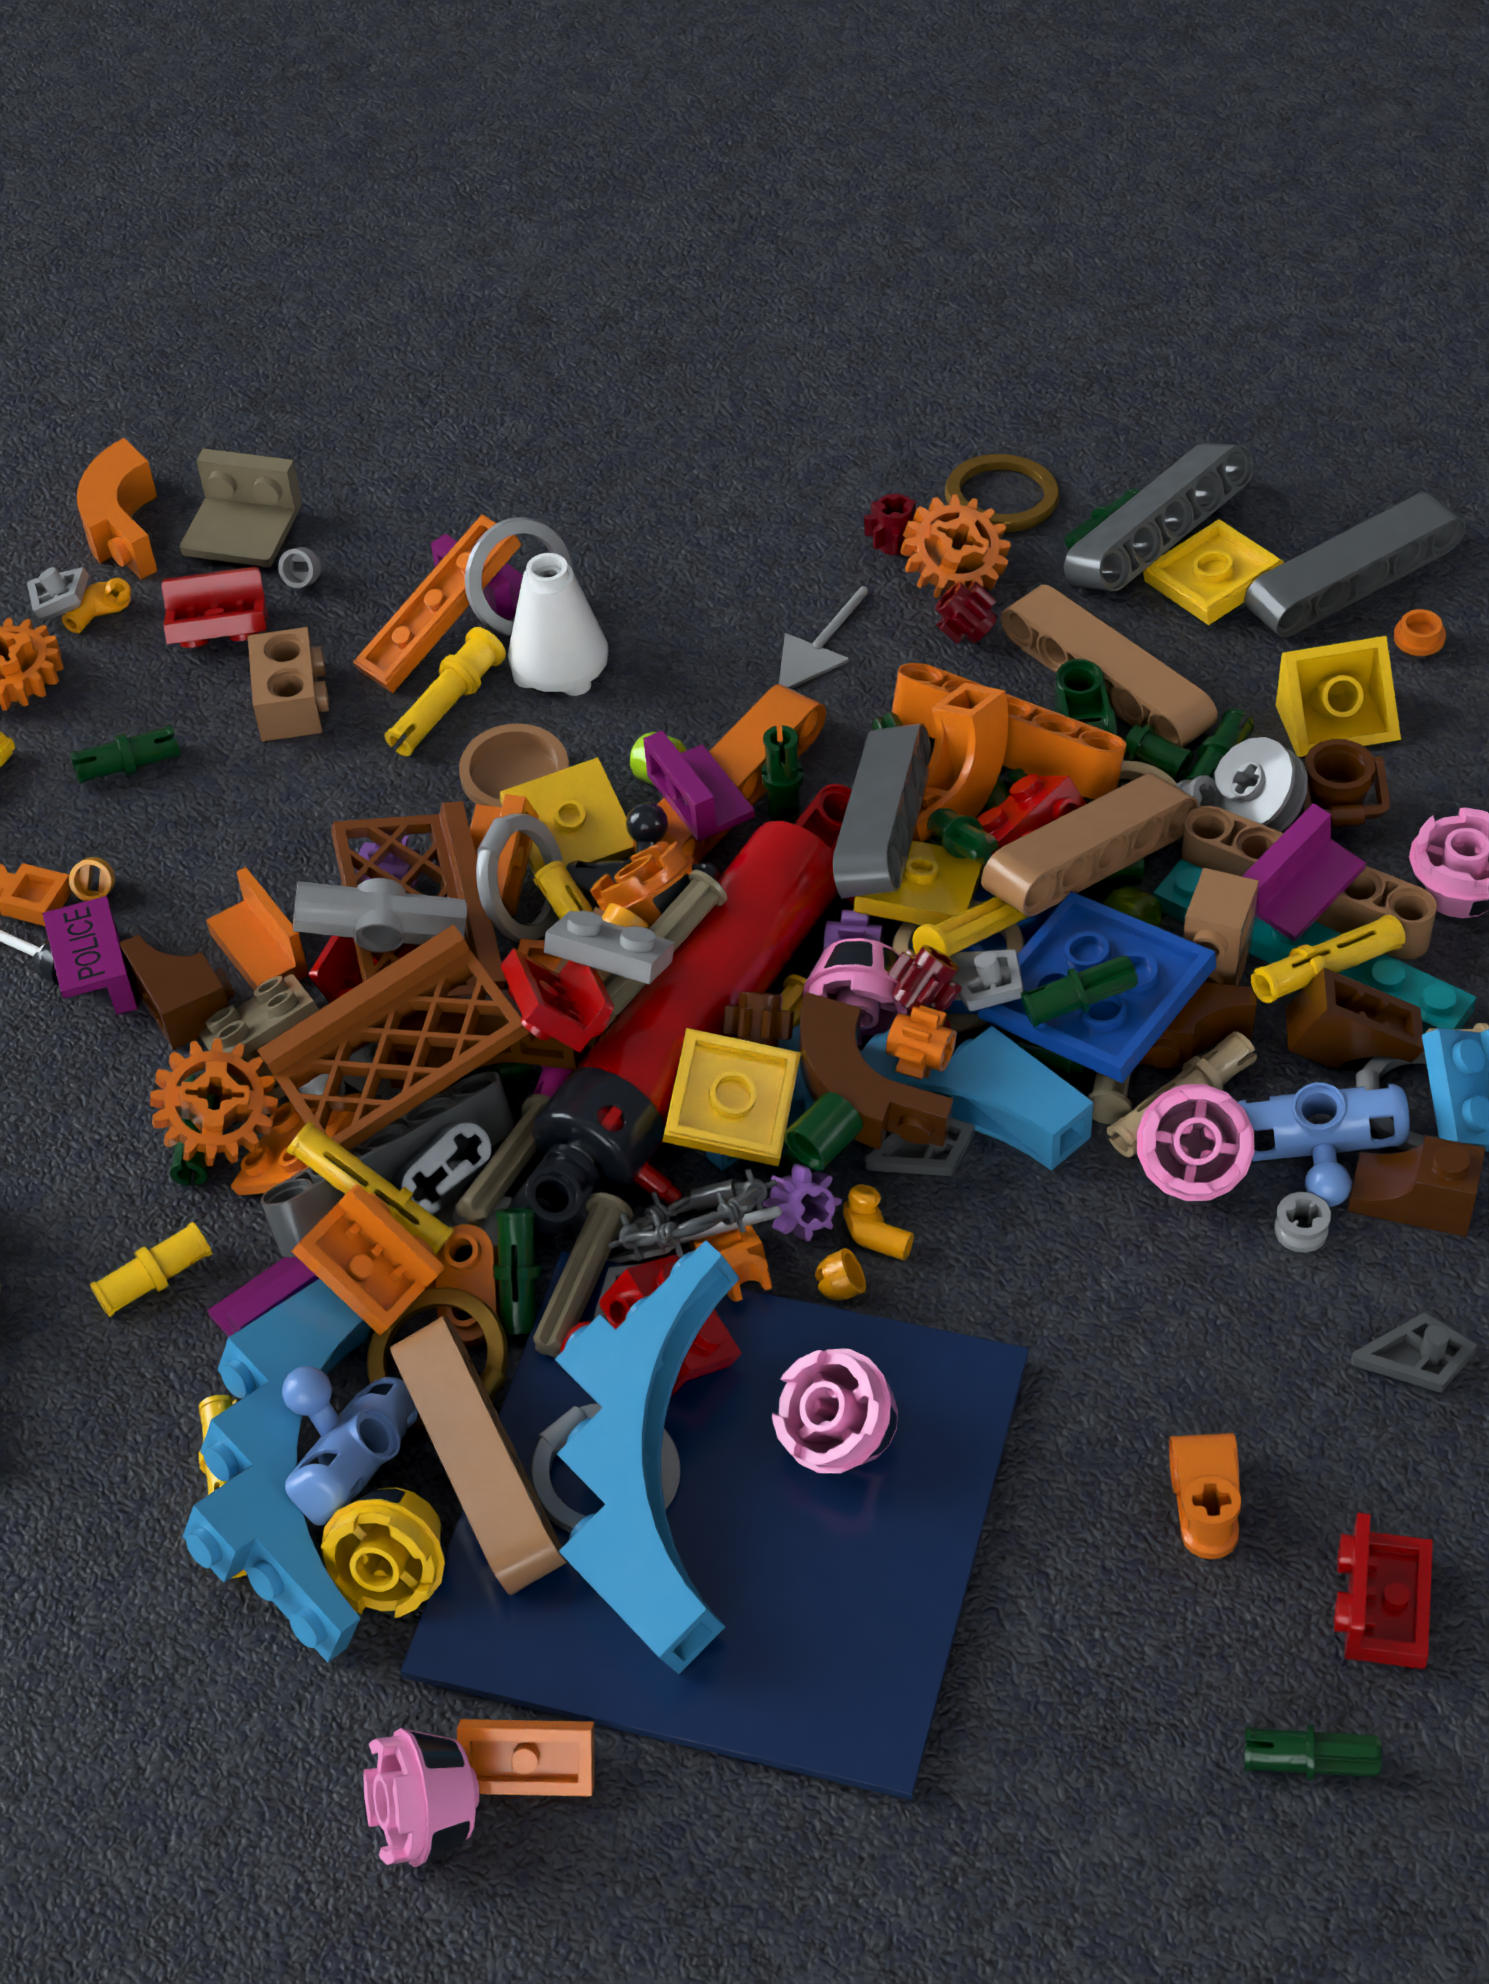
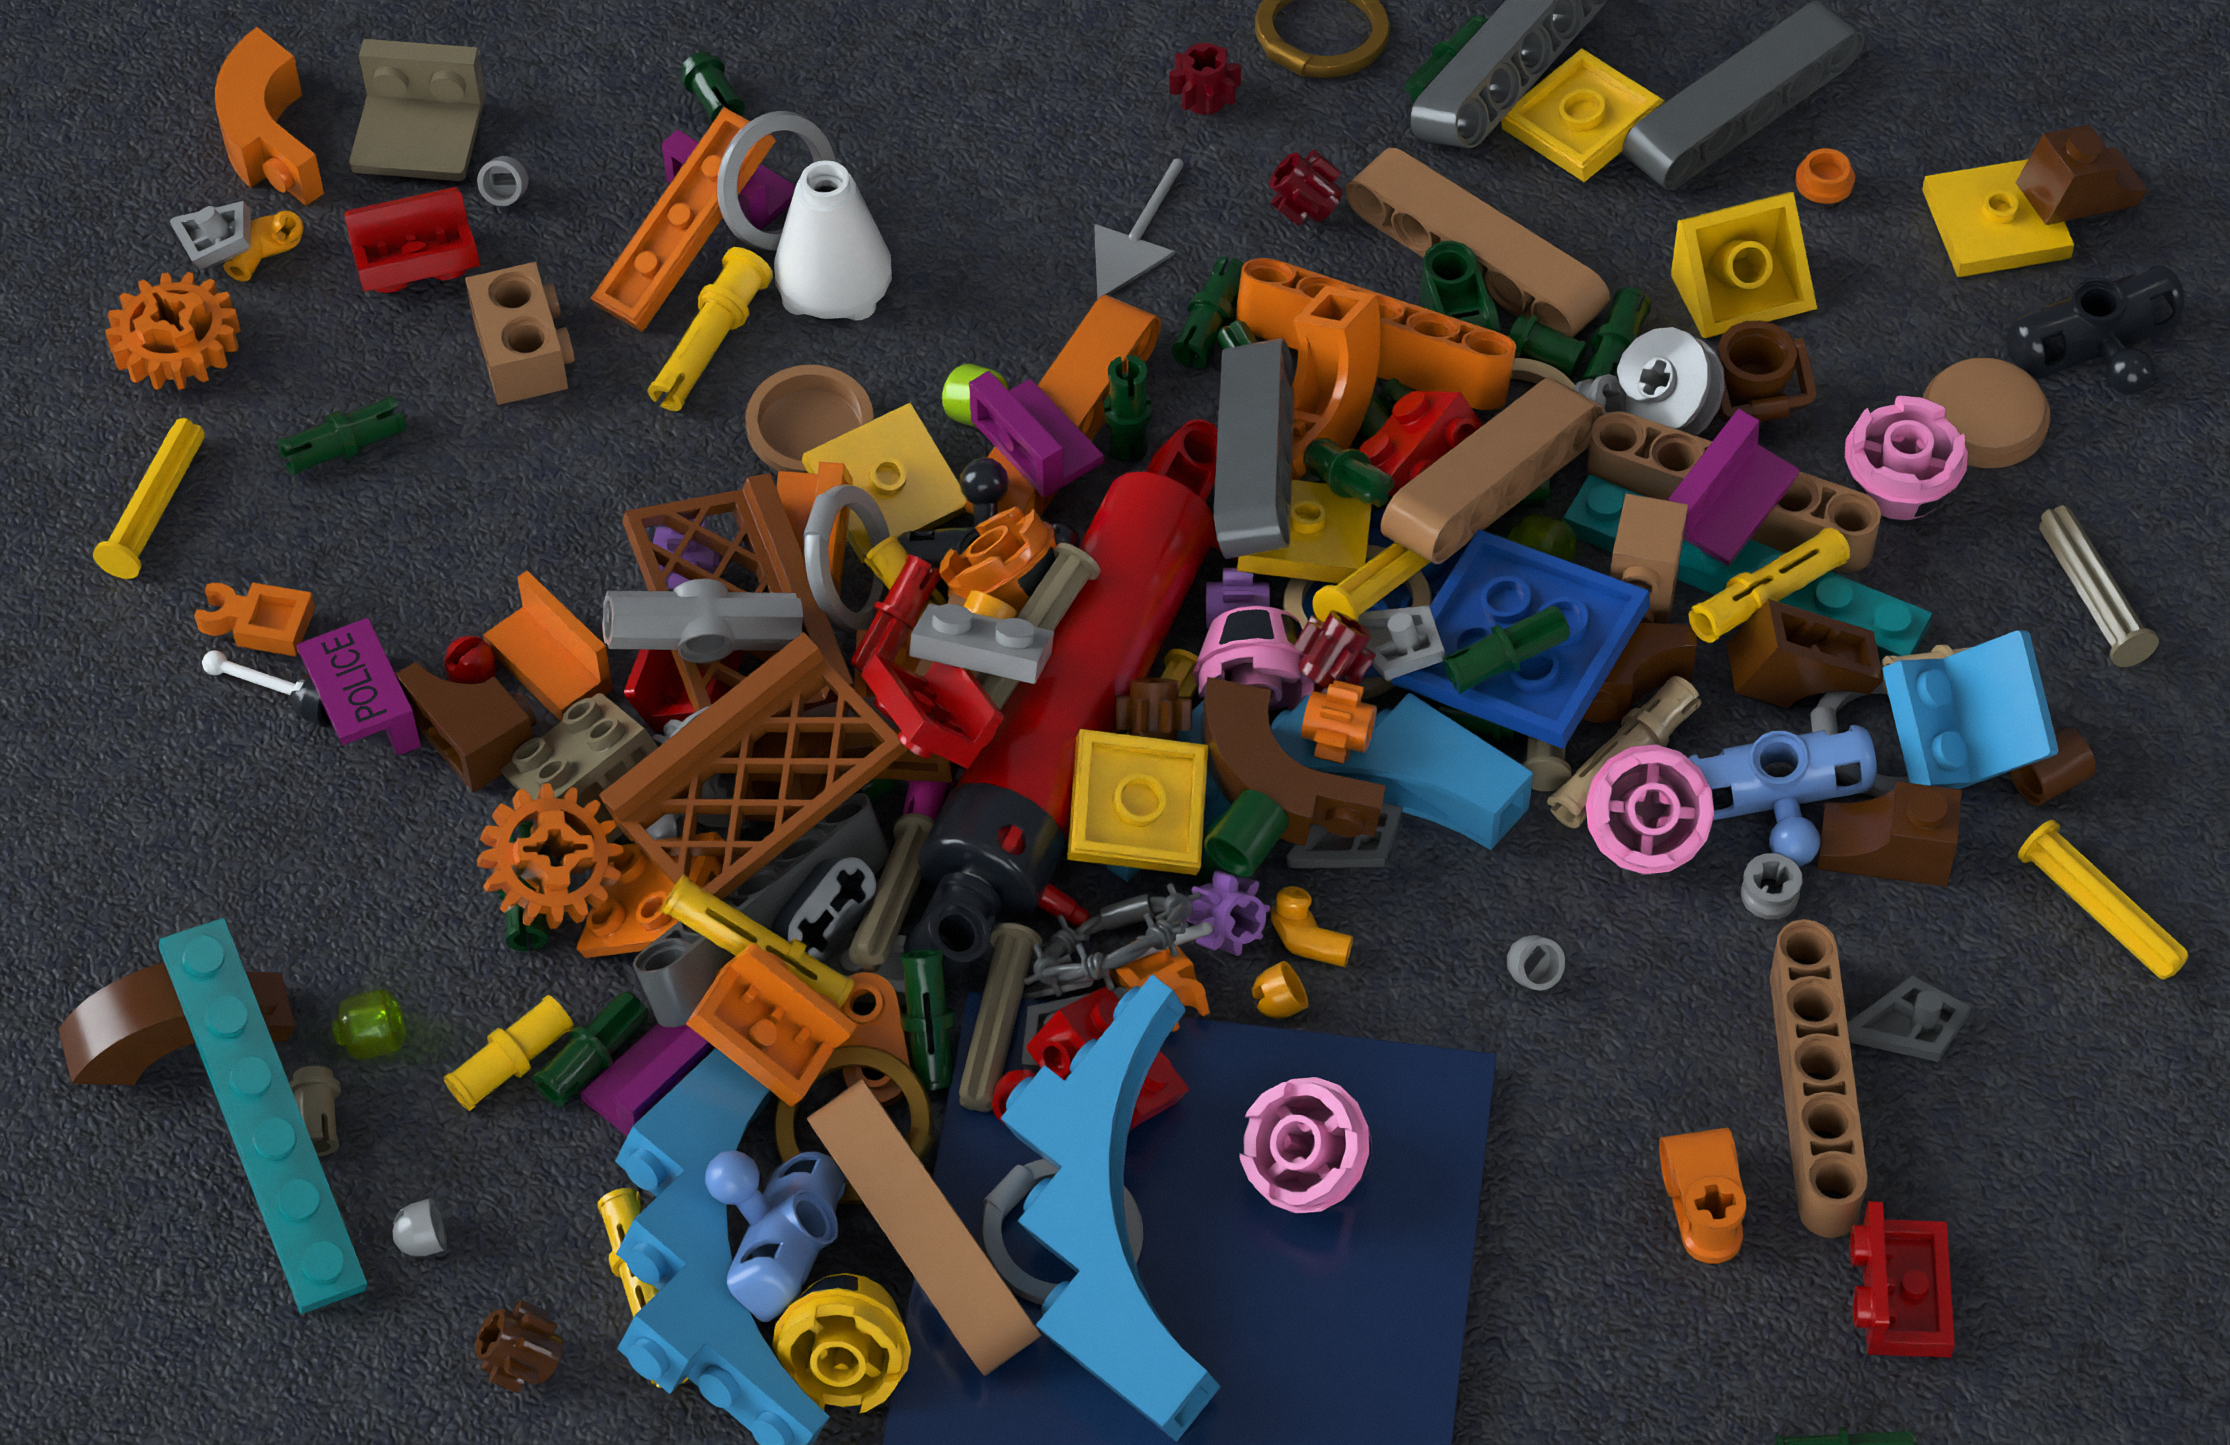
camera: 10 degrees left, 5 degrees up
(39, 1234) = (370, 1024): none -> clear neon green piece
(42, 1415) = (420, 1229): none -> light grey hinge
(82, 878) = (324, 590): light orange hinge -> none
(100, 1526) = (518, 1346): none -> reddish brown gear
(190, 938) = (475, 661): none -> red hinge
(222, 1272) = (590, 1048): none -> dark green axle
(482, 498) = (705, 77): none -> dark green pin
(569, 897) = (897, 612): none -> red axle
(866, 706) = (1208, 314): none -> dark green pin
(960, 526) = (1257, 110): orange gear -> none
(1082, 1276) = (1541, 968): none -> light grey hinge
(1319, 1418) = (1815, 1103): none -> medium nougat beam

